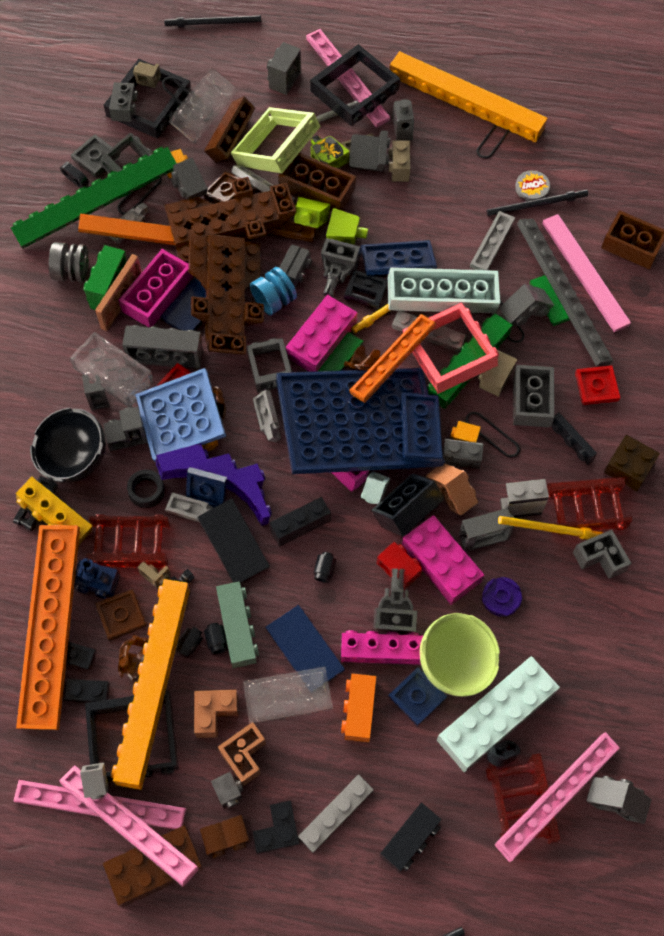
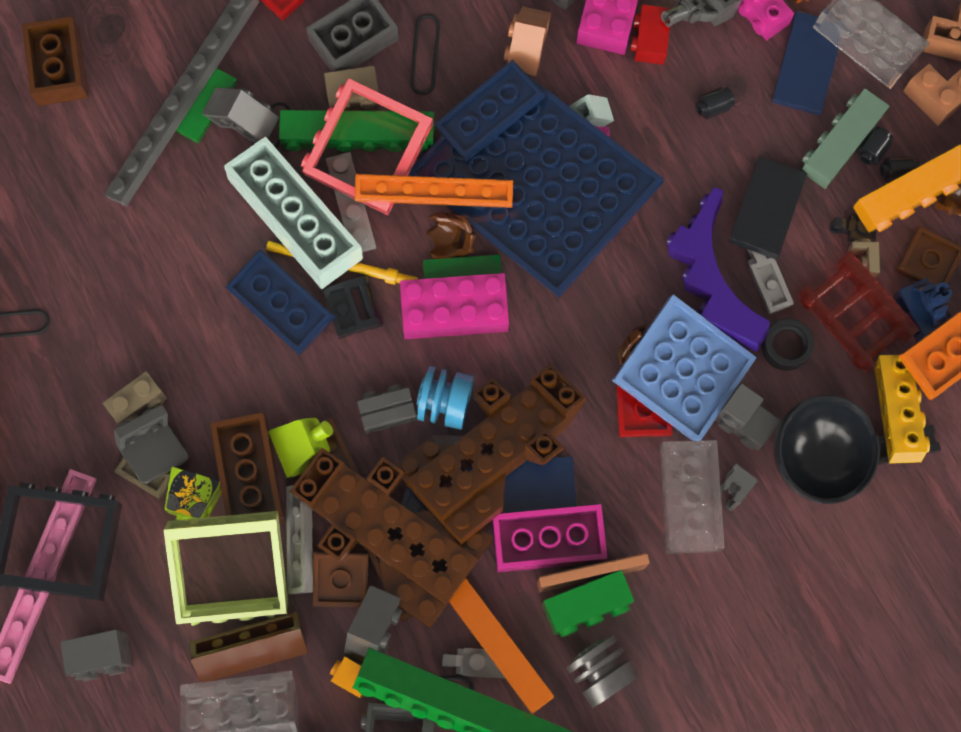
camera: 130 degrees left, 10 degrees up
(163, 346) = (618, 460): dark grey brick -> none
(206, 486) = (742, 282): dark blue plate -> none
(267, 415) = (599, 289): light grey hinge -> none
(268, 381) = (550, 313): dark grey window -> none
(300, 521) = (689, 159): black brick -> none
(331, 114) = (119, 548): light grey bar -> none
(338, 262) = (345, 359): dark grey brick -> none
(345, 227) = (288, 392): lime torso -> none
(402, 114) = (68, 442): dark grey torso -> none
(408, 504) = (587, 63): black brick -> none
(462, 453) = (477, 56): dark grey brick -> none
(465, 432) = (454, 72): light orange brick -> none
(492, 241) = (174, 215): light grey plate -> none
(532, 185) = (52, 228): tile -> none
(569, 196) = (38, 177): black bar -> none
(586, 273) = (136, 94): bright pink tile -> none

